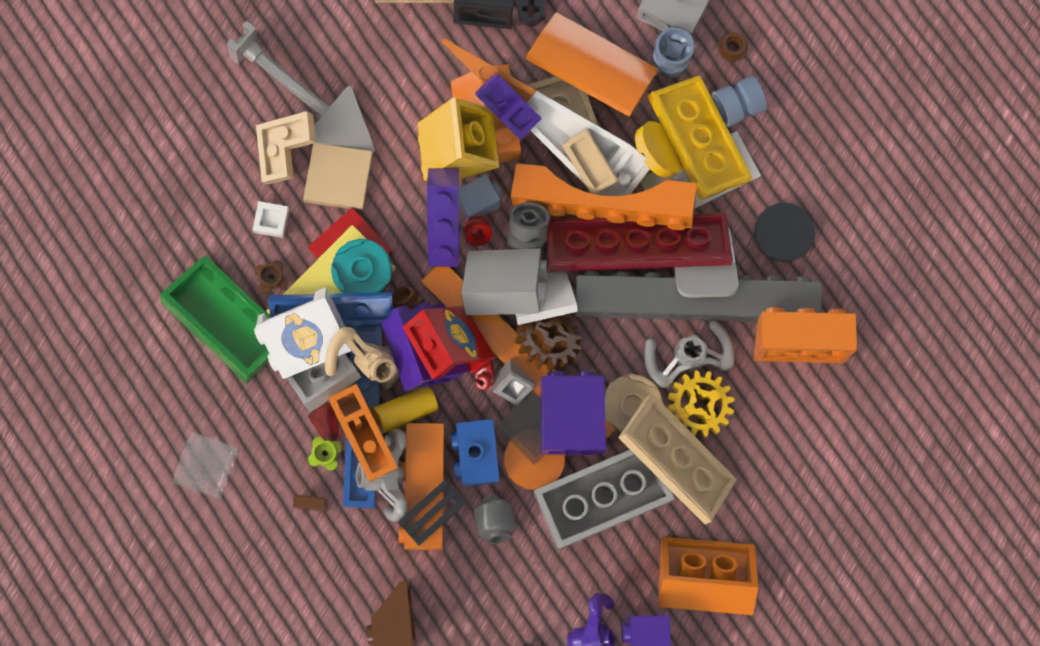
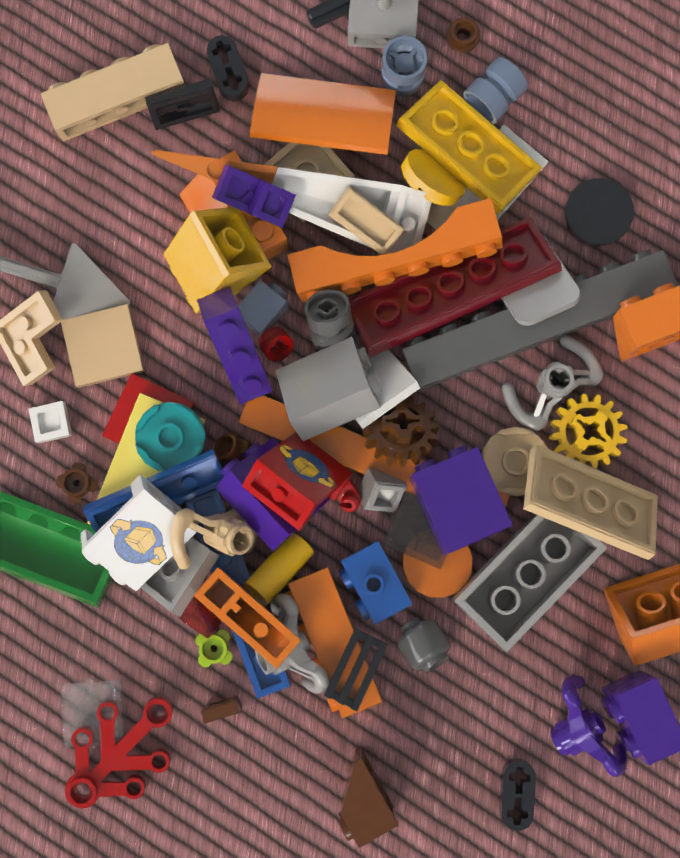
camera: 15 degrees left, 5 degrees up
(209, 506) = (115, 756): none -> red plant

